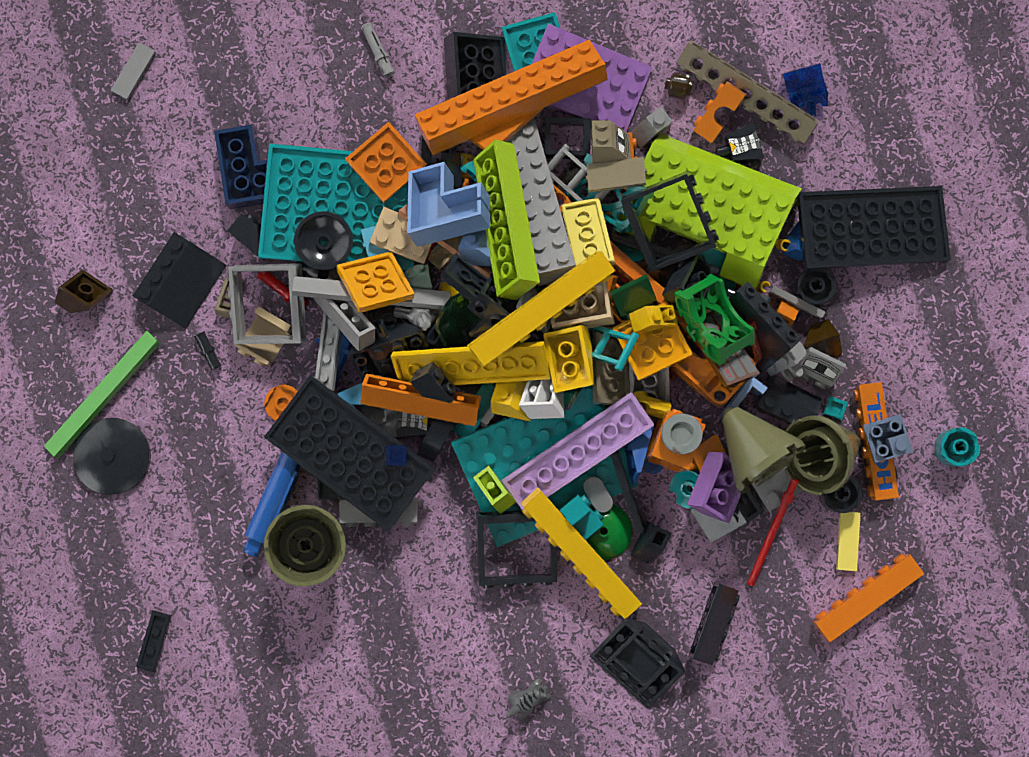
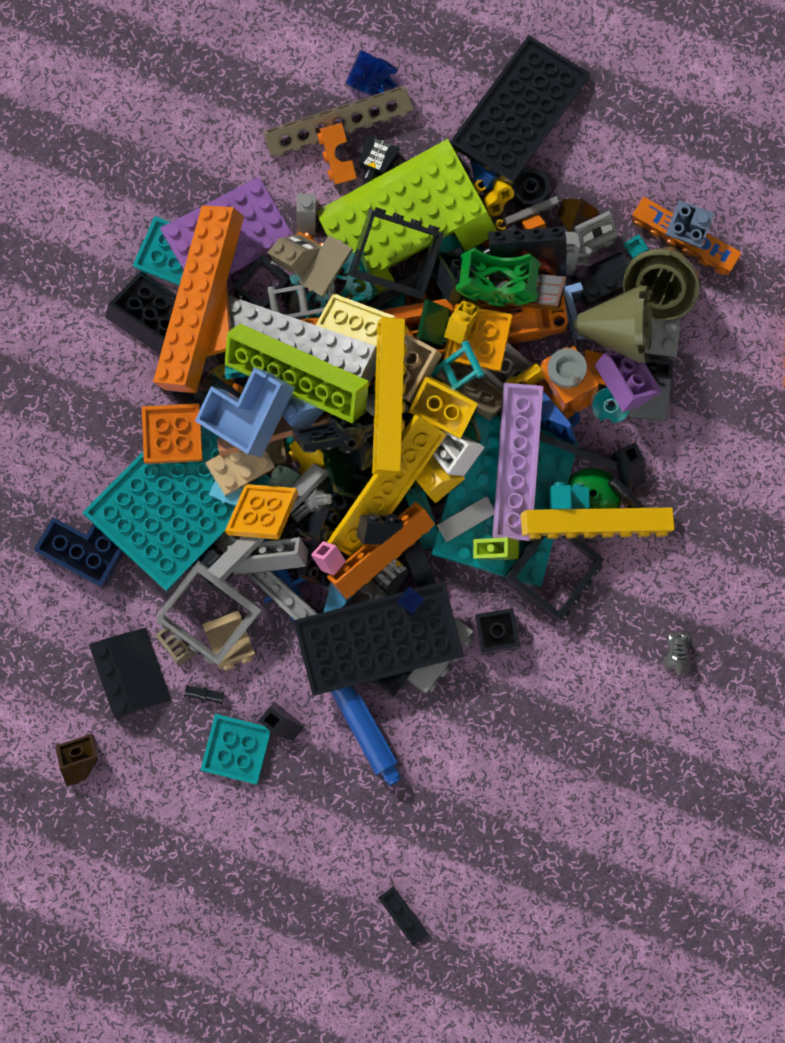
camera: 55 degrees left, 5 degrees down
(102, 394) = (171, 806): bright green tile -> none
(111, 456) = (227, 836): black dish -> none
(183, 409) = (235, 749): none -> teal plate
(229, 427) = (281, 722): none -> black slope
(247, 232) = (140, 588): black slope -> none
(277, 285) = (211, 594): red pin -> none
(278, 399) = (291, 667): orange tile -> none
(284, 549) = (430, 710): olive cone -> none
(321, 227) = (192, 515): black dish -> none
(379, 363) = (328, 558): none -> bright pink brick
(381, 56) = (79, 377): light grey pin -> none
(432, 541) = (497, 631): none -> black brick
(487, 418) = (435, 511): light grey tile -> none
(499, 447) = (466, 519): none -> light grey tile
(597, 494) = (557, 473): light grey tile -> none
(624, 555) = (624, 492): none -> black pin
(640, 660) = (714, 544): black slope -> none
(679, 85) = (290, 168): dark brown head -> none
(713, 623) = (729, 466): black slope -> none
(786, 266) = (498, 196): none -> yellow axle
(787, 497) = (676, 334): red bar -> none
(848, 541) = (745, 317): light yellow tile -> none
(849, 501) = (714, 288): black brick -> none
(966, 442) = (739, 170): teal brick -> none

